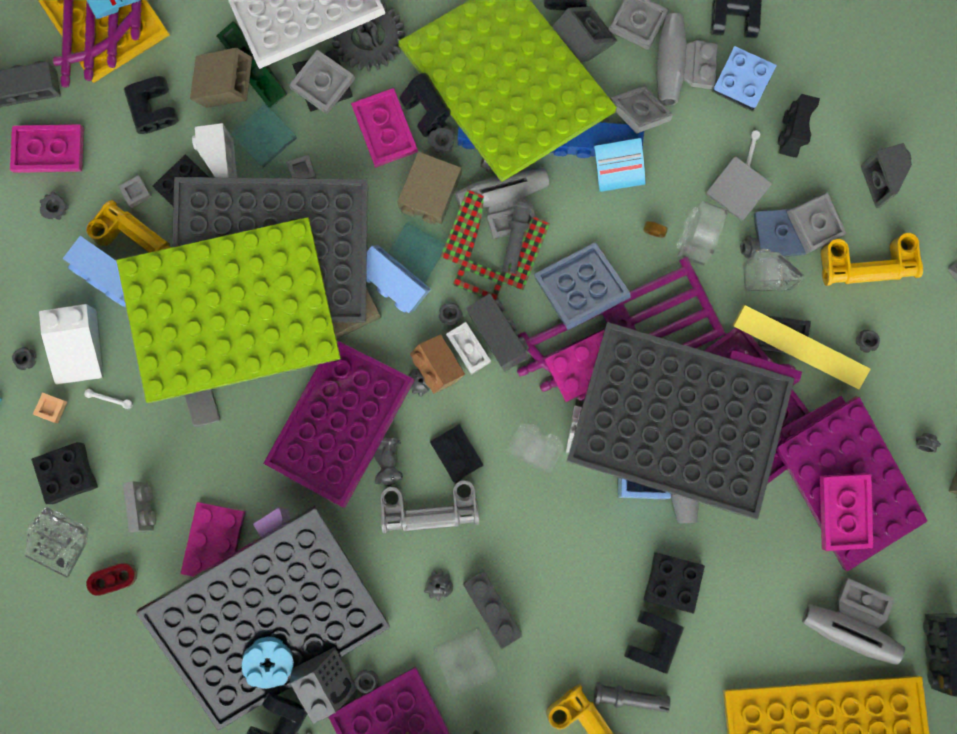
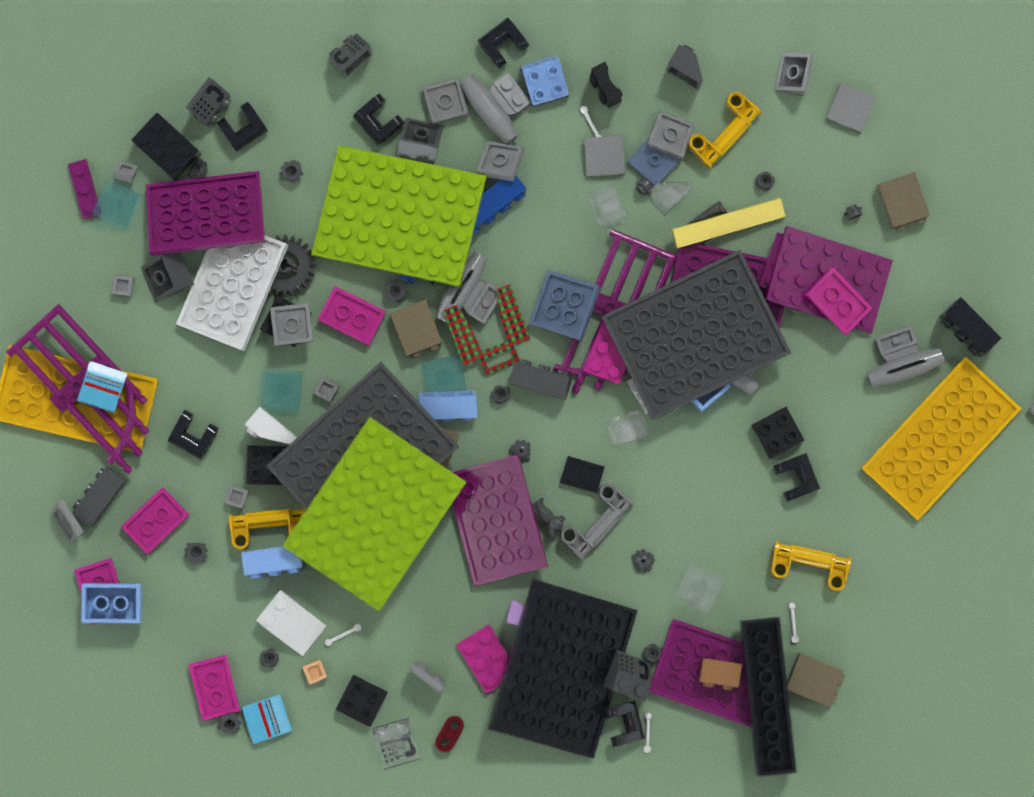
camera: 45 degrees left, 5 degrees up
(202, 408) = (408, 588): light grey slope -> none
(221, 78) = (224, 378): dark tan brick -> none
(260, 79) = (252, 356): dark green slope -> none
(269, 677) = (597, 695): medium azure plate -> none
(423, 90) = (368, 274): black connector -> none
(437, 364) = (522, 432): medium nougat brick -> none
(468, 348) = (531, 405): white plate -> none
(492, 609) = (687, 544): dark grey brick -> none
(518, 225) = (494, 304): dark grey pin -> none
(619, 696) = (804, 526): dark grey pin -> none
(620, 164) = (519, 208): medium azure slope -> none
(655, 229) = (577, 228): pearl gold tile -> none
(765, 363) = (715, 255): magenta plate -> none

